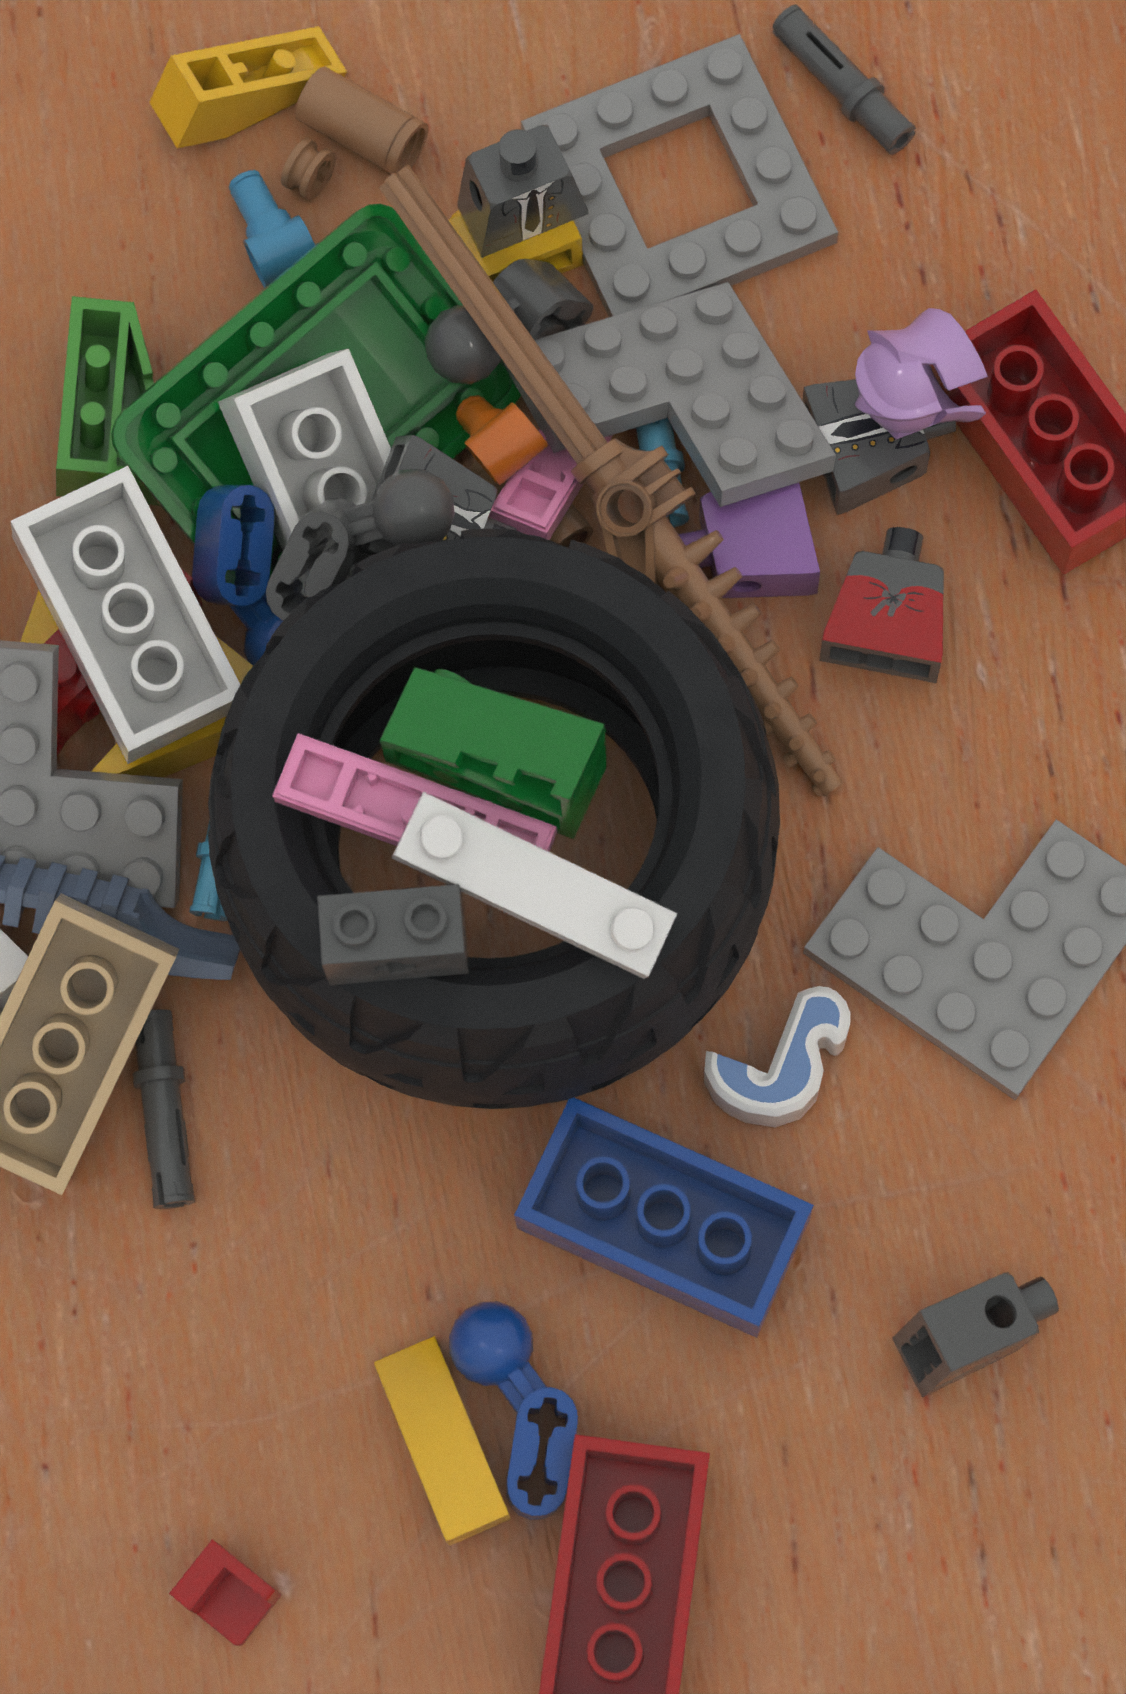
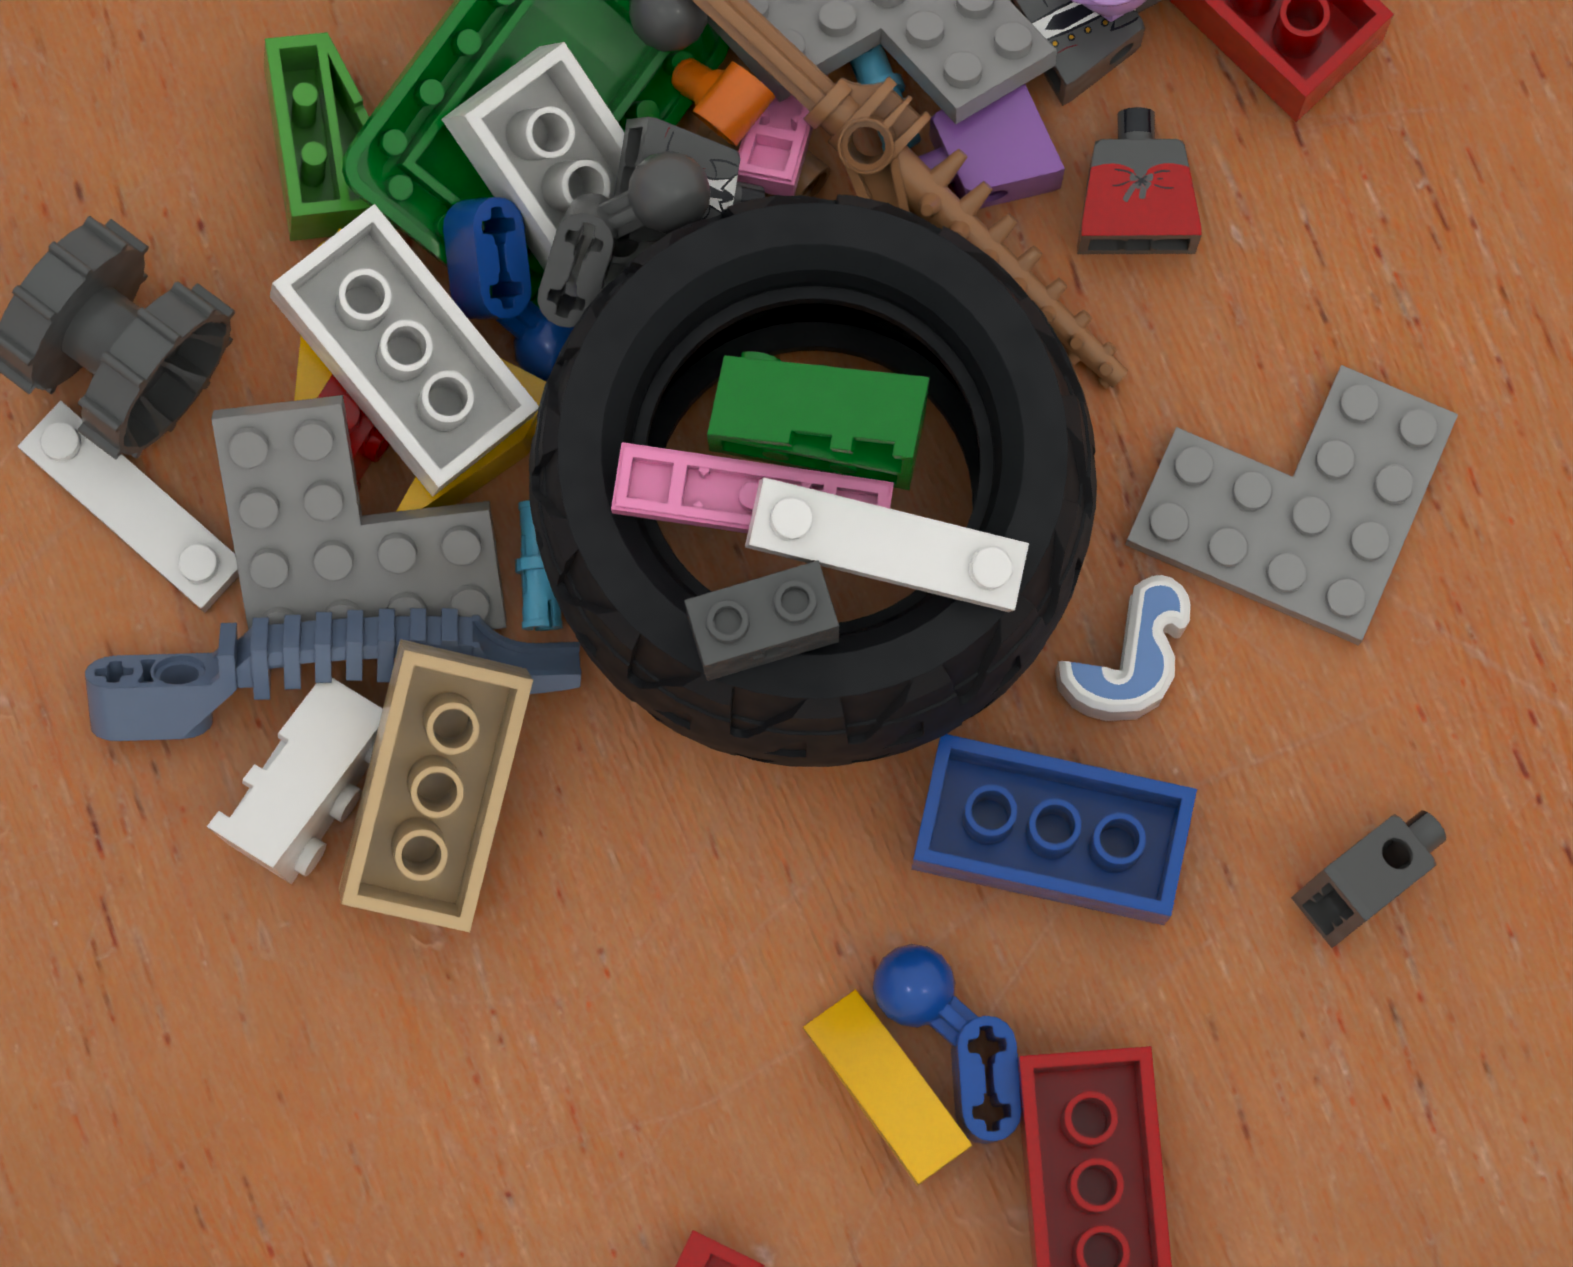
camera: 15 degrees left, 5 degrees up
(163, 1113) = (545, 835): dark grey pin -> none

